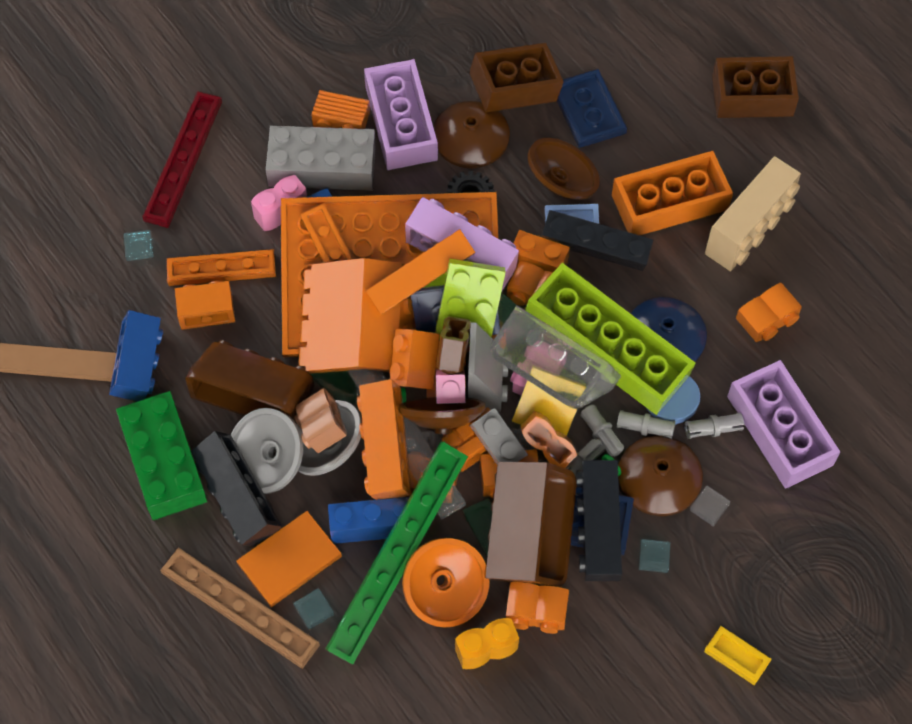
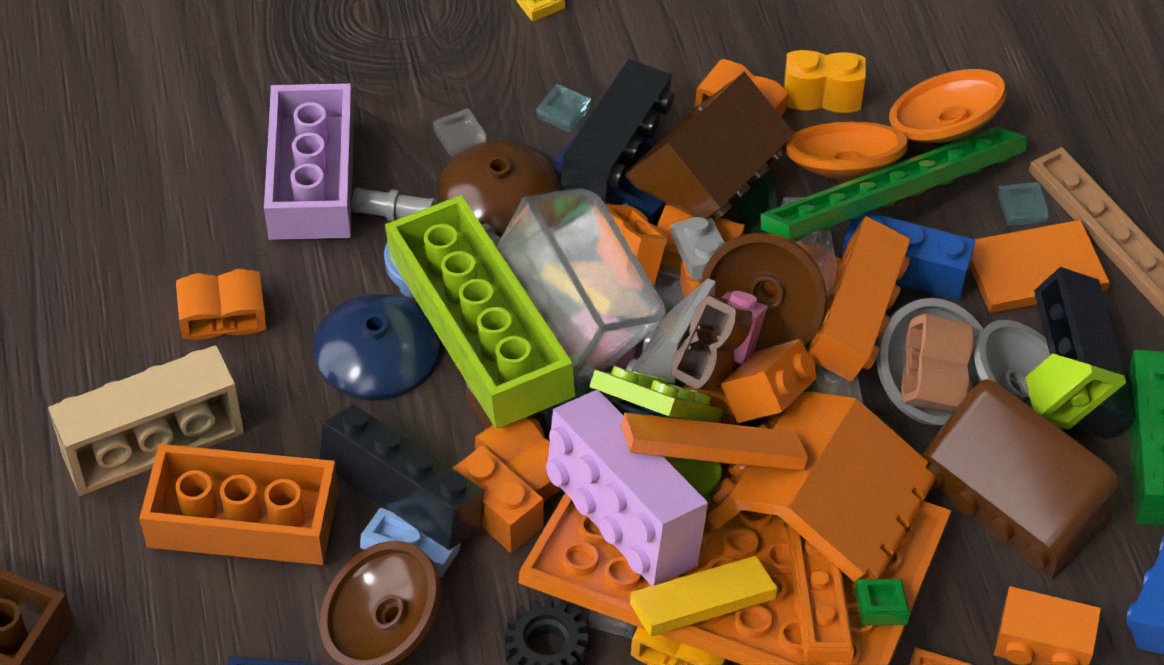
camera: 155 degrees left, 10 degrees down
(233, 433) = (1069, 389): none -> lime slope
(297, 259) = (881, 602): none -> green tile
(391, 216) = (703, 595): none -> yellow tile
(405, 646) = (948, 106): none -> orange dish

